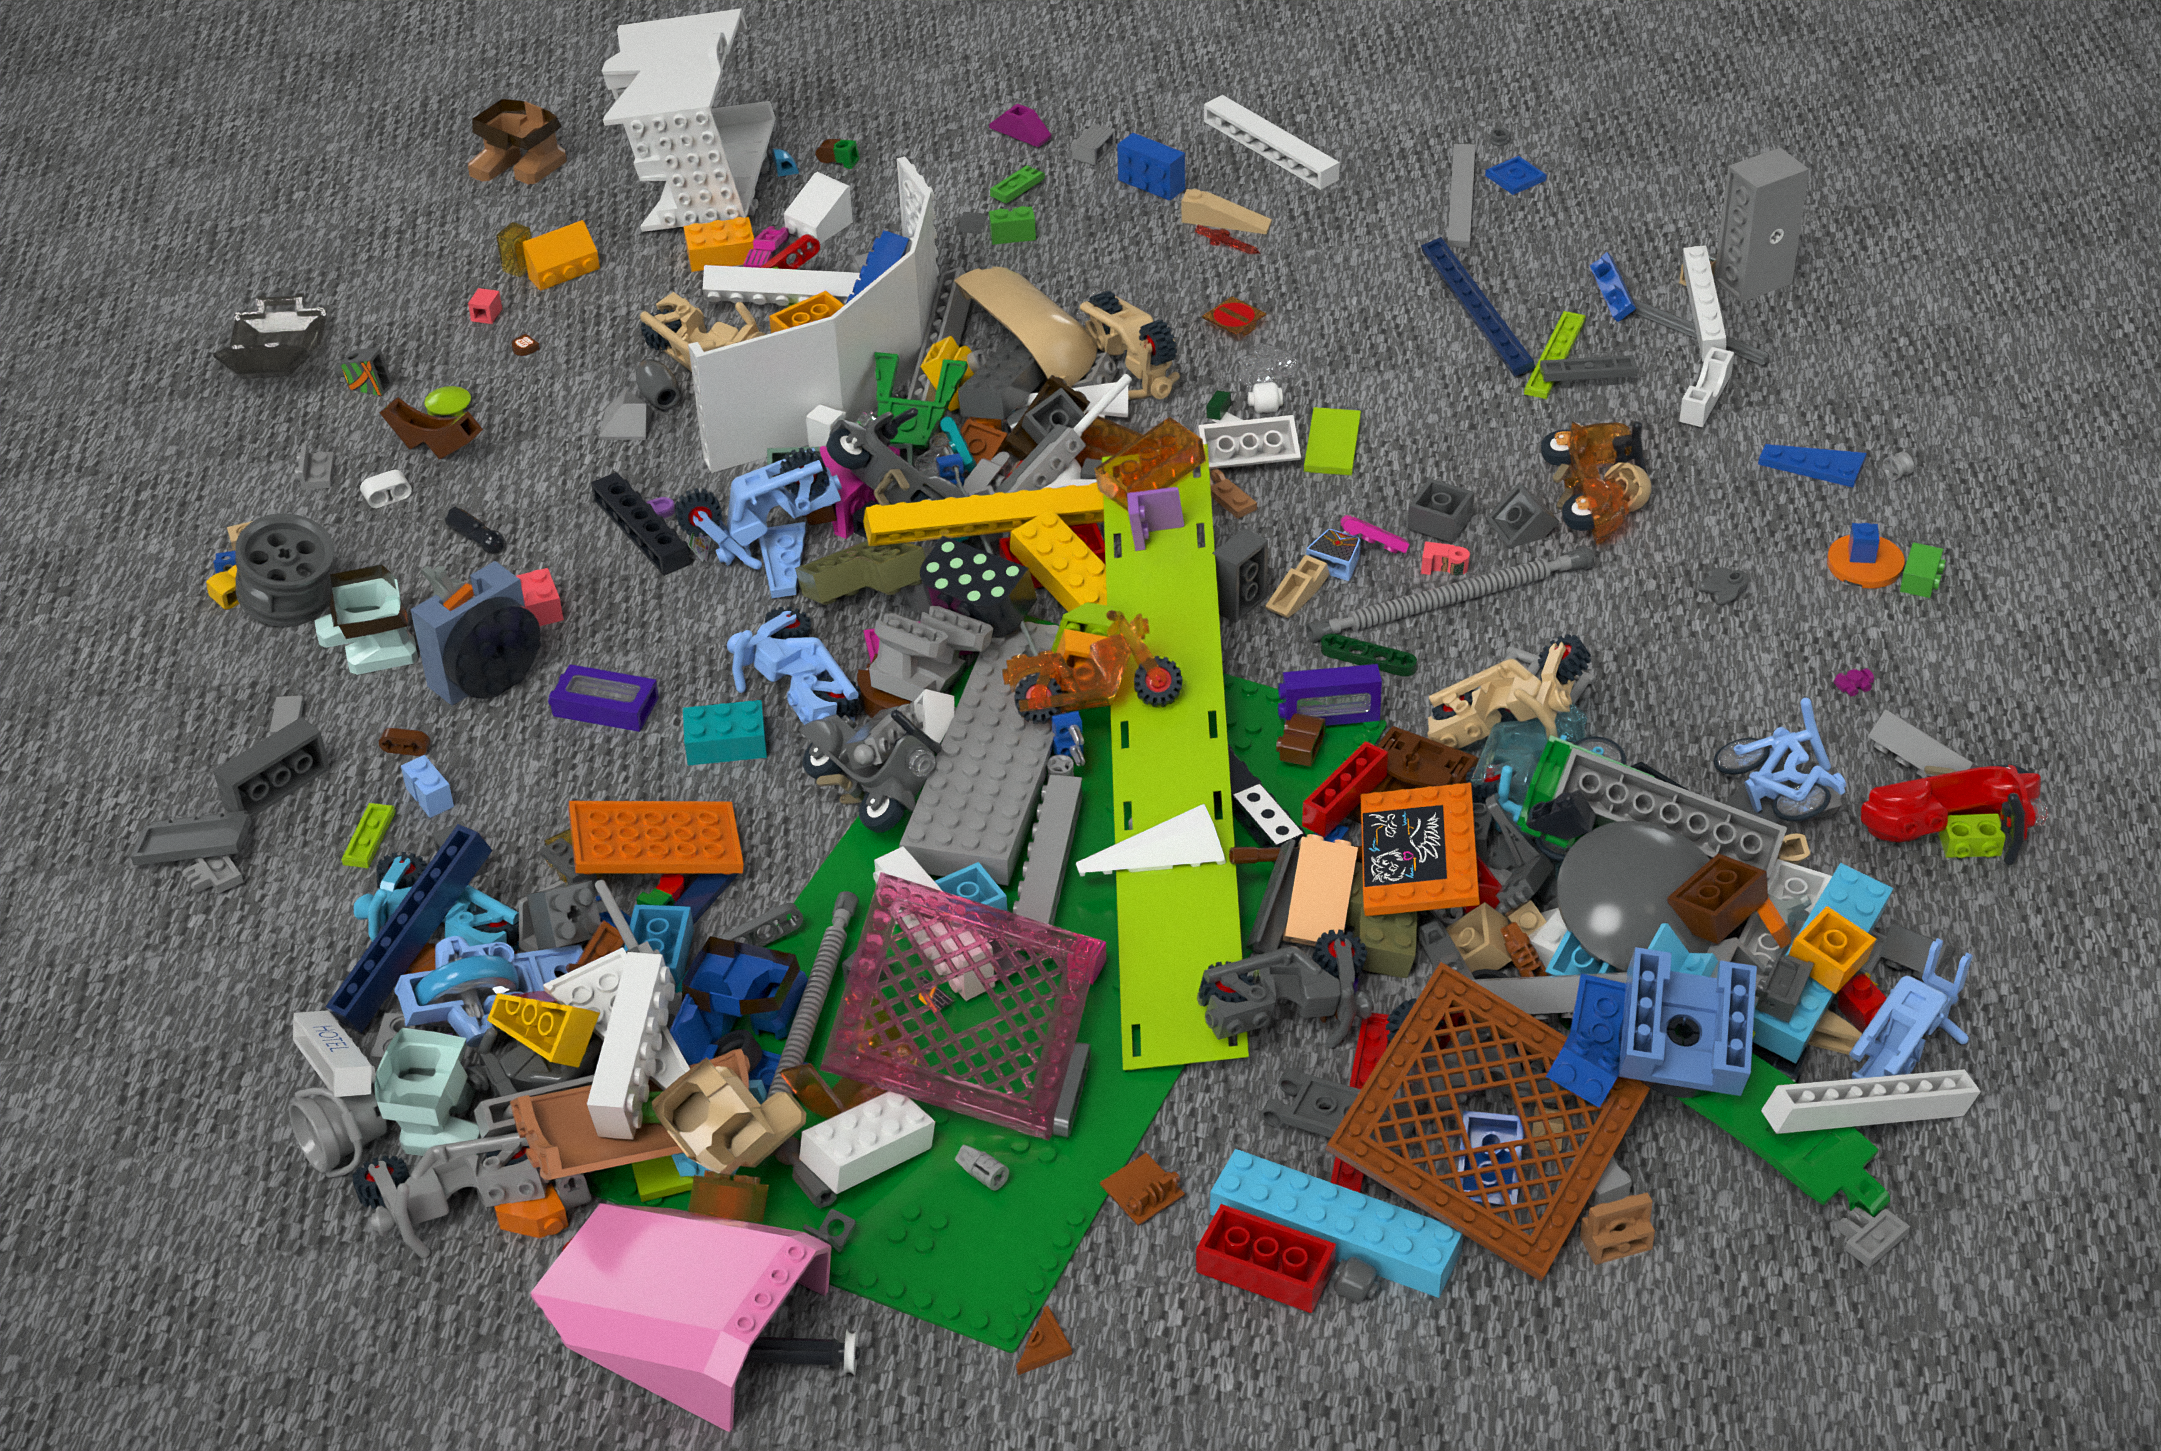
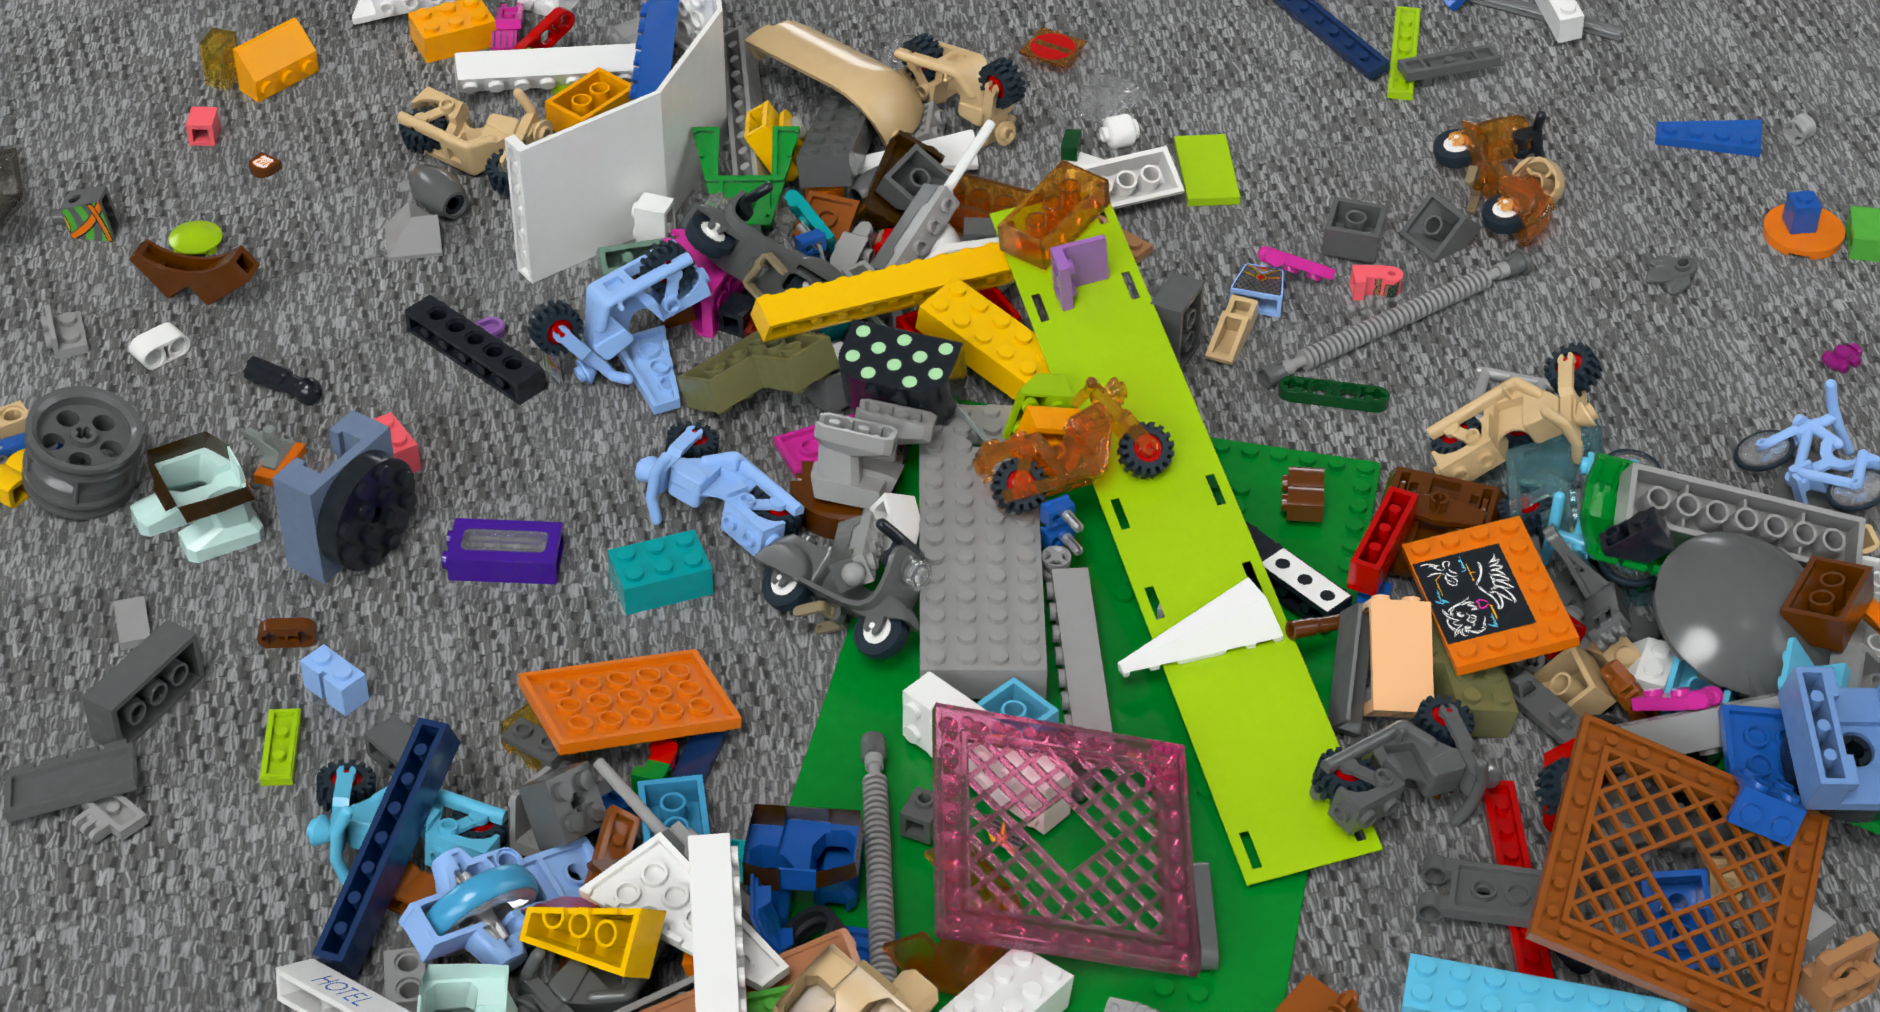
camera: 15 degrees left, 0 degrees up
(749, 929) = (814, 771): dark grey beam -> none
(1334, 694) = (1325, 439): dark purple piece -> none
(1554, 964) = (1678, 699): none -> dark pink hinge
(1714, 376) = (1577, 69): white arch -> none

